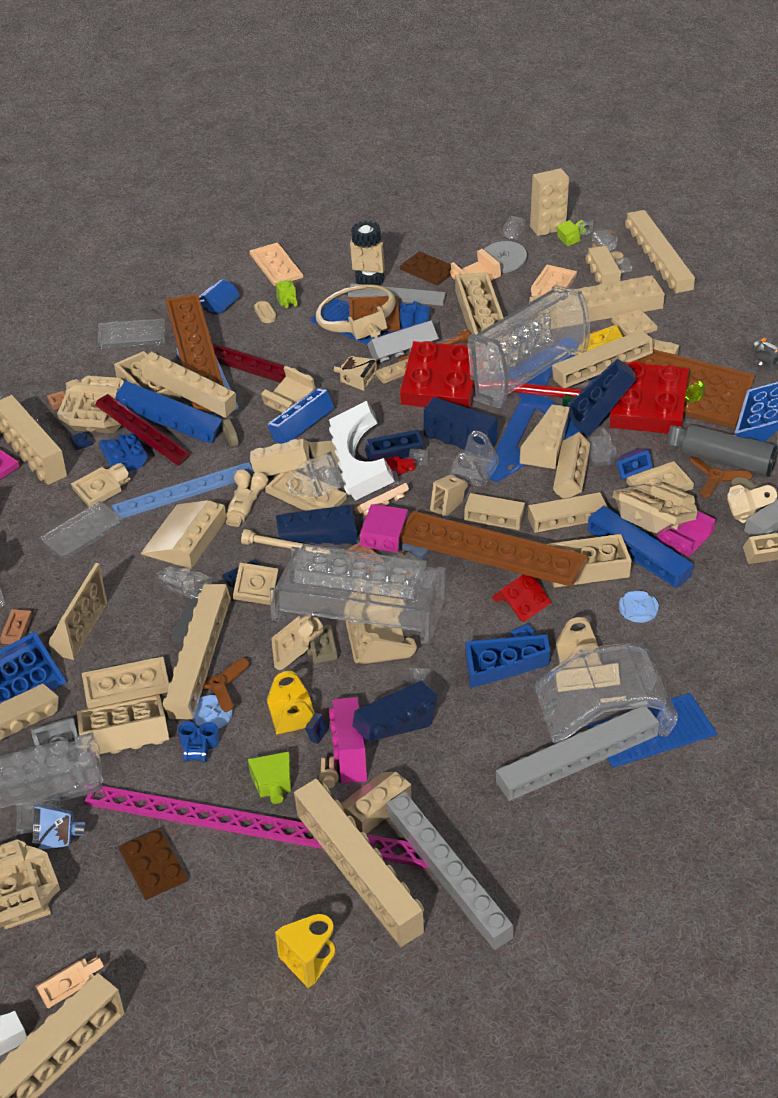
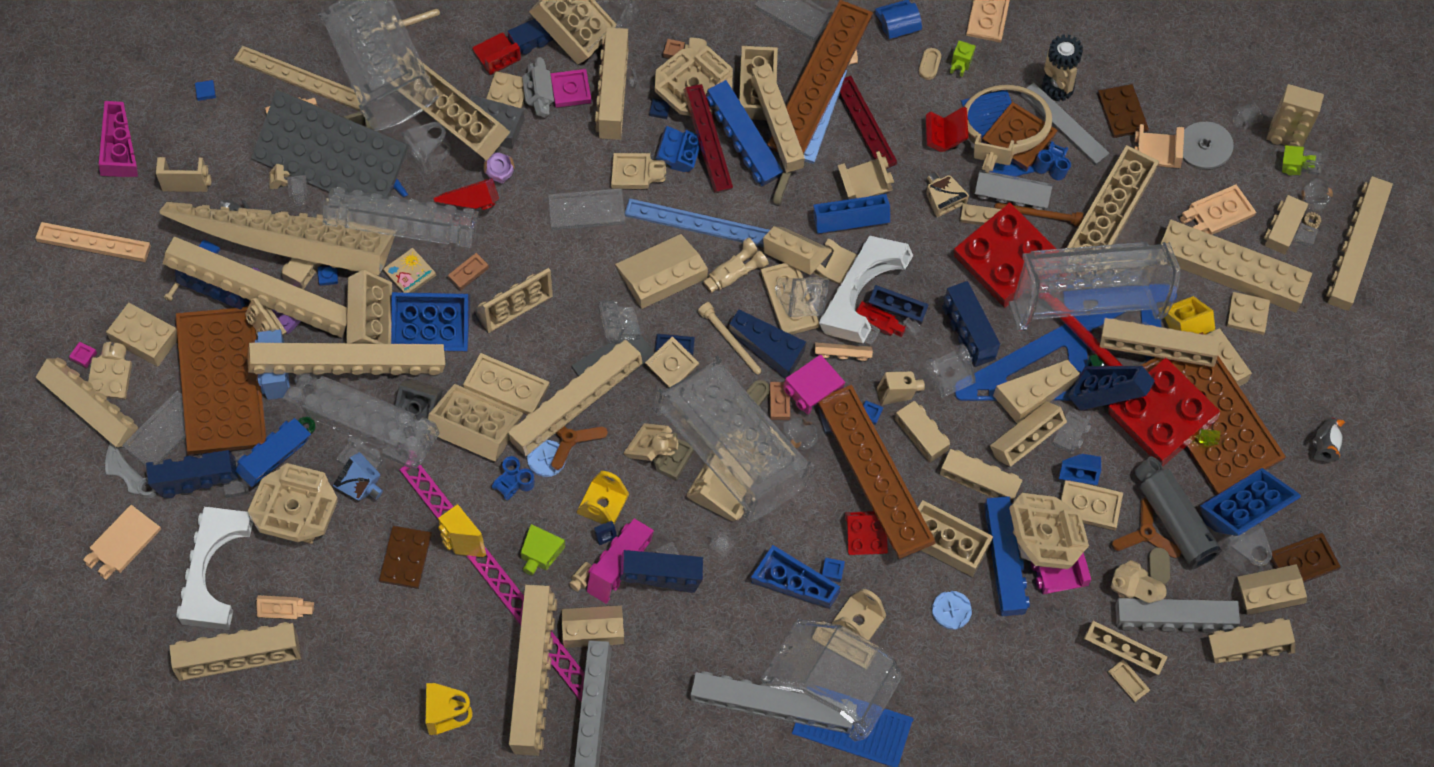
camera: 35 degrees right, 20 degrees up
(196, 797) = (460, 533): none -> yellow slope
(322, 333) = (946, 131): none -> red bracket

